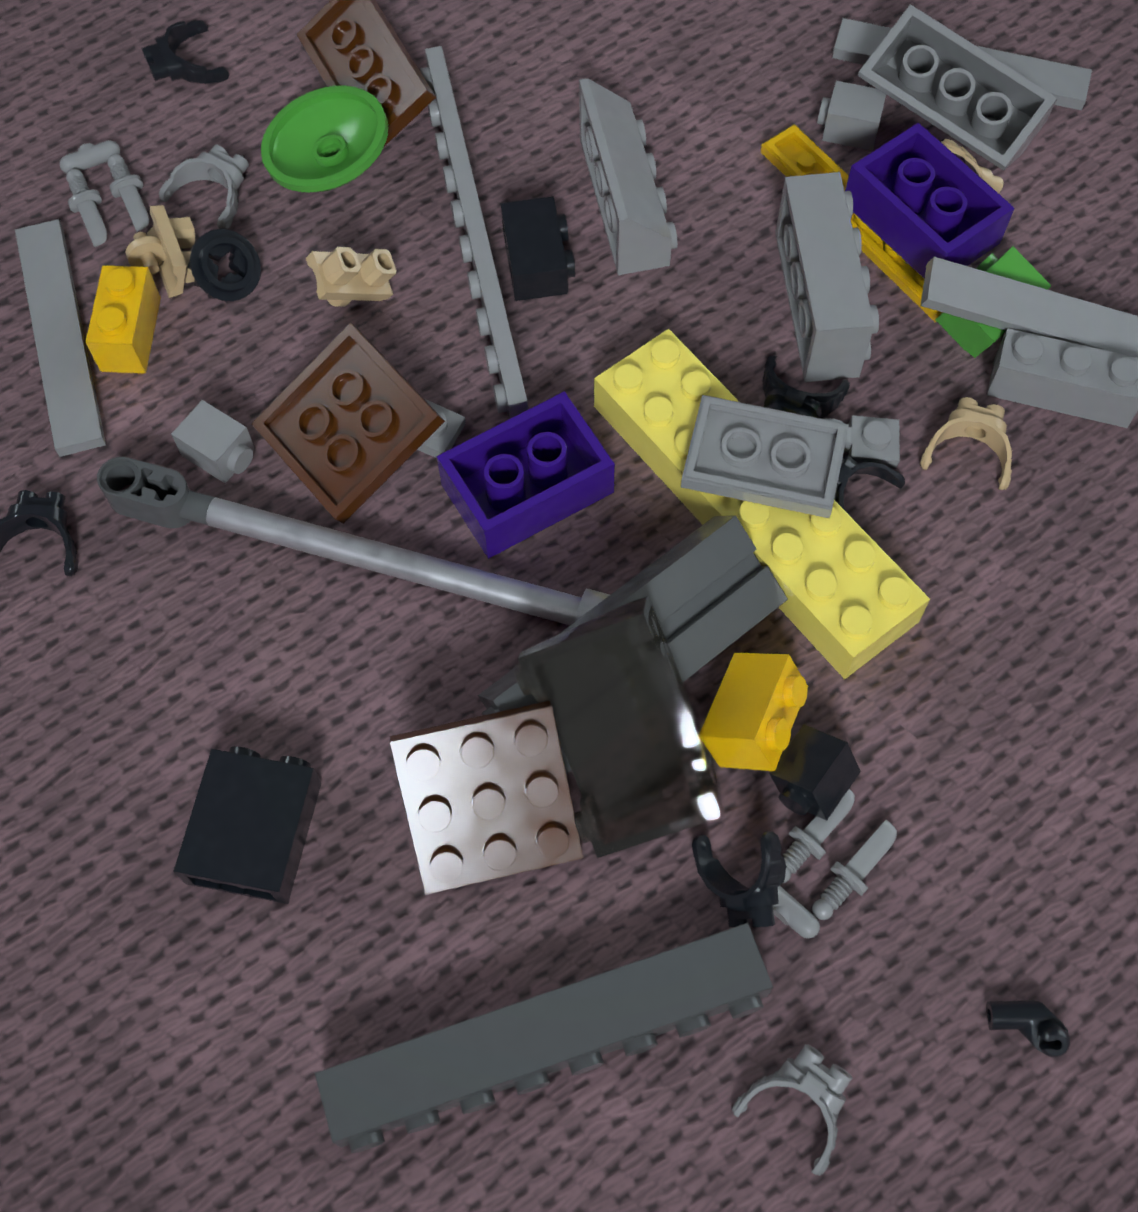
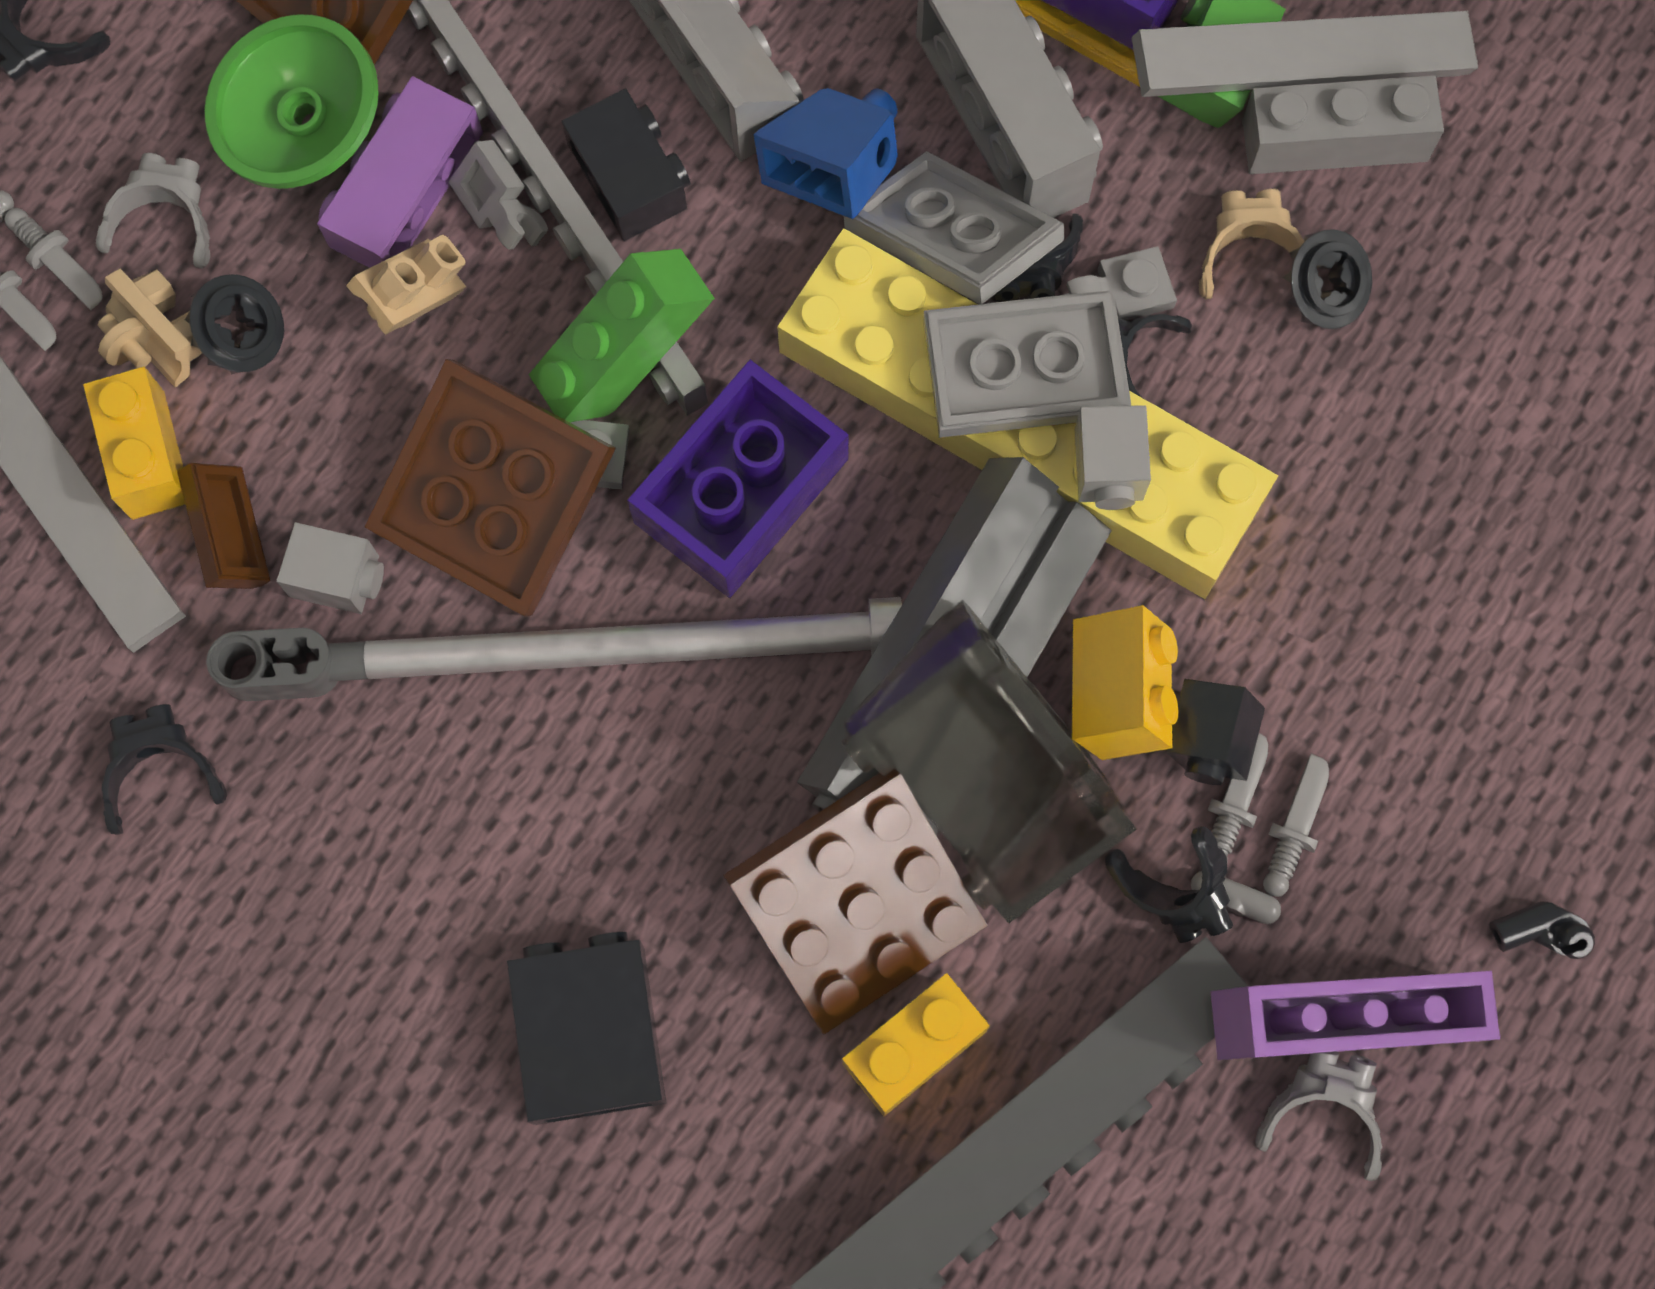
camera: 20 degrees left, 10 degrees up
(156, 392) = (223, 526): none -> reddish brown tile
(380, 206) = (399, 174): none -> medium lavender brick
(433, 237) = (490, 194): none -> light grey plate
(479, 345) = (621, 334): none -> bright green brick
(489, 925) = (915, 1044): none -> yellow brick
(681, 278) = (830, 149): none -> blue torso
(751, 355) = (955, 227): none -> light grey tile
(803, 535) = (1112, 455): none -> light grey brick
(846, 1026) = (1354, 1014): none -> medium lavender brick
(1038, 482) = (1349, 275): none -> black gear

